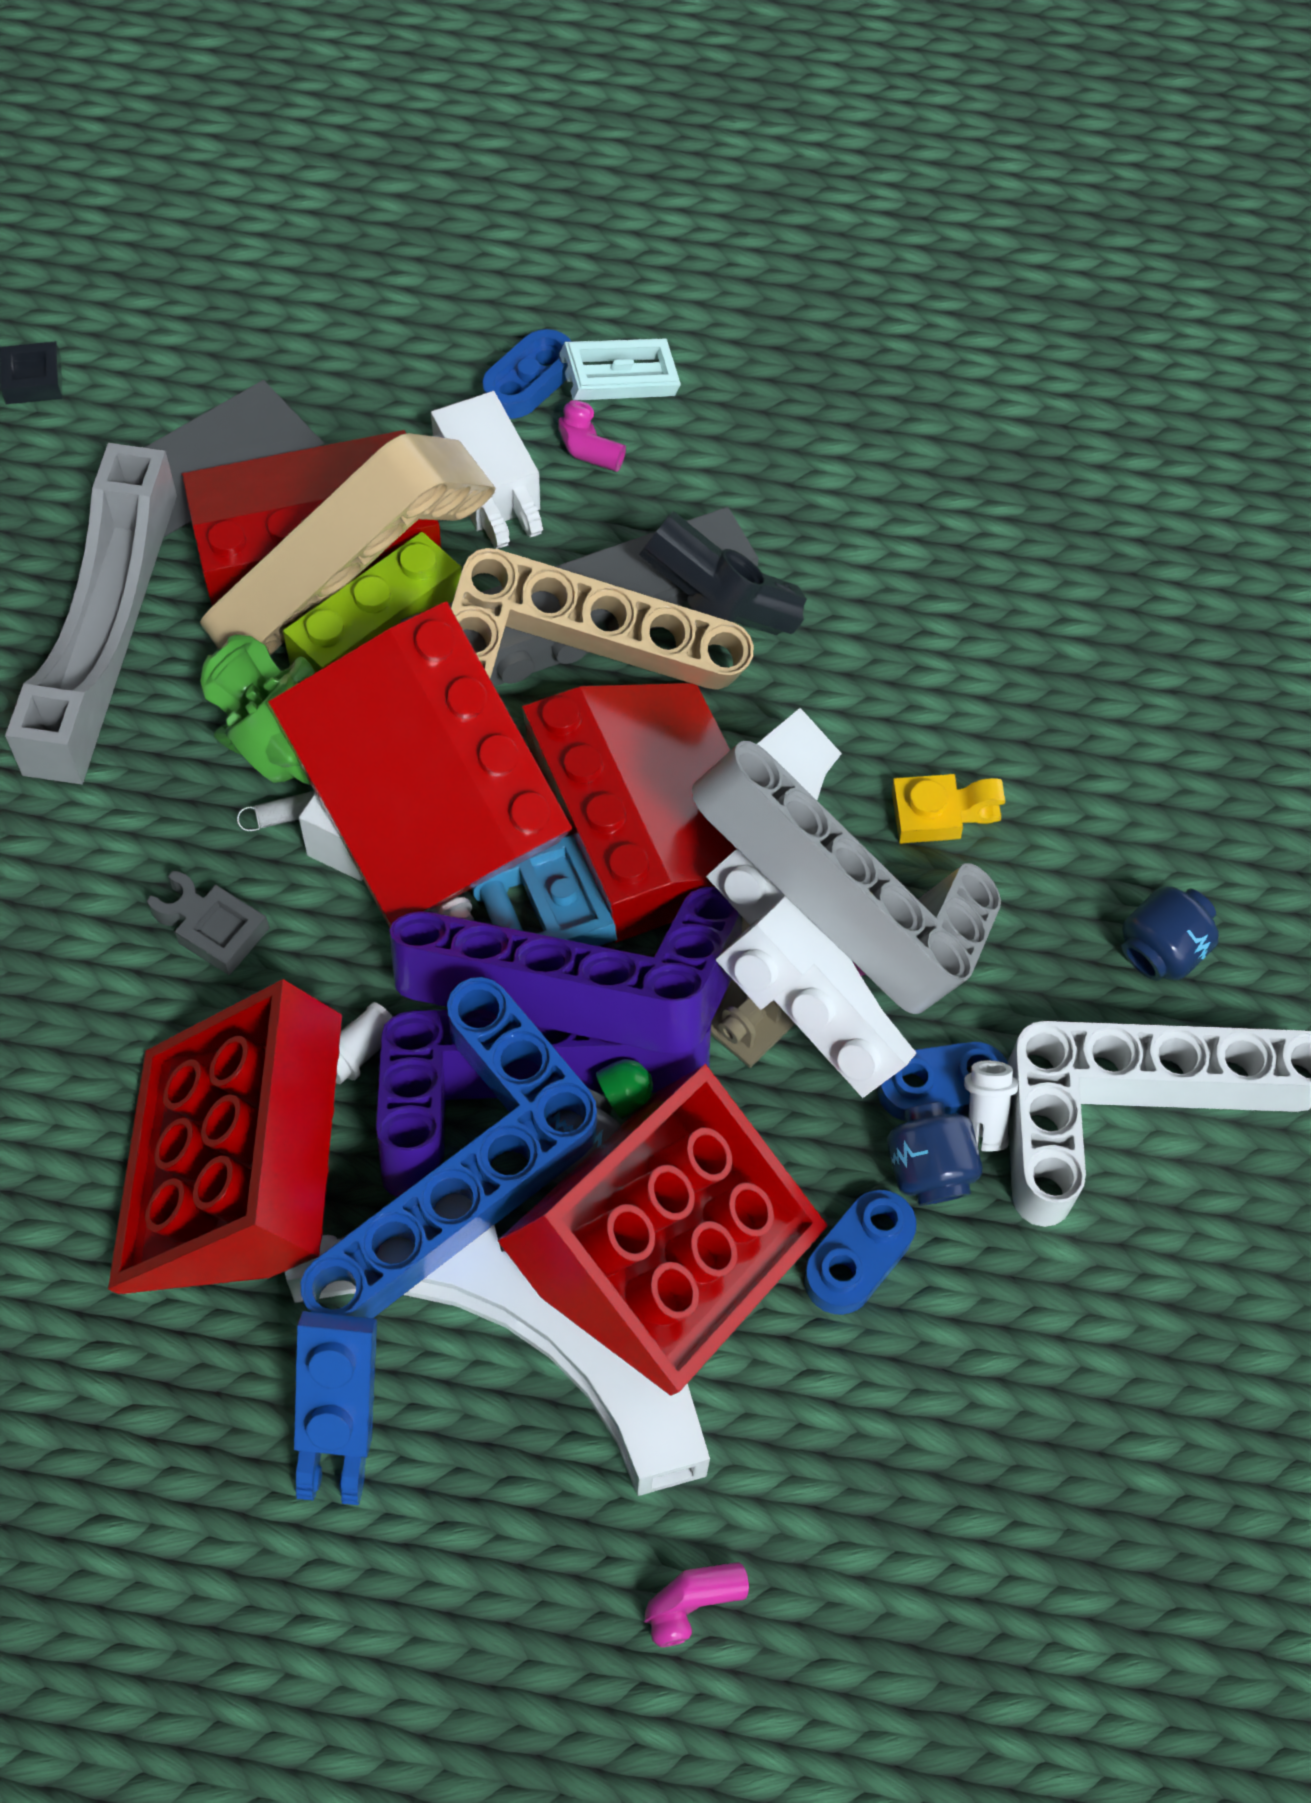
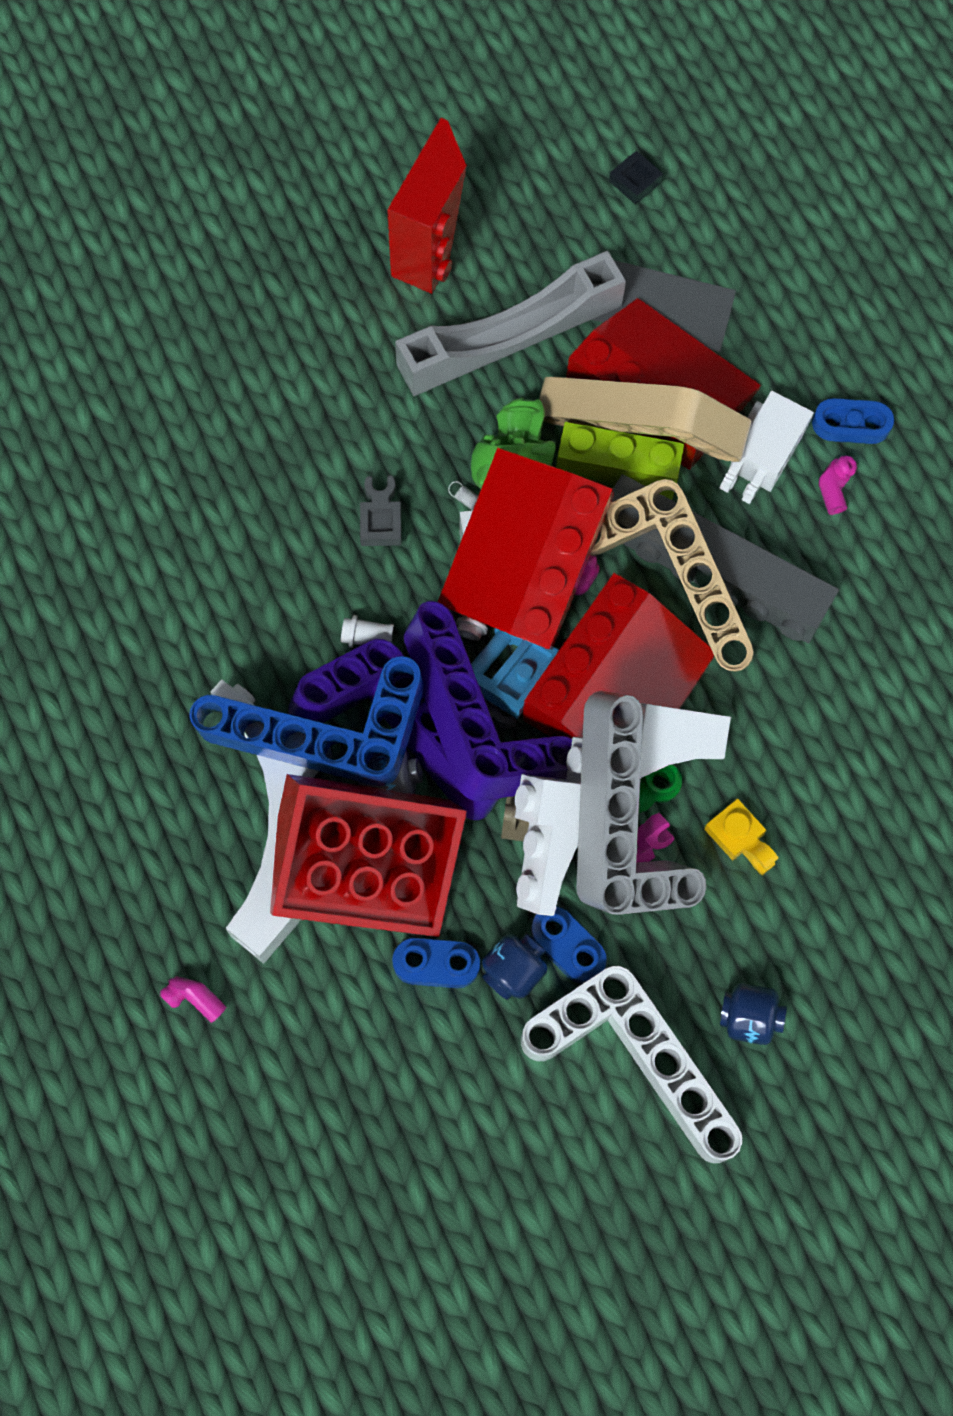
camera: 55 degrees right, 10 degrees up
(230, 1146) = (261, 615): red slope -> none
(334, 1399) = (163, 757): blue hinge -> none
(624, 376) = (888, 479): light aqua tile -> none
(625, 1086) = (430, 779): green hinge -> none
(723, 581) = (779, 624): black piece -> none
(990, 1099) = (571, 971): white pin -> none

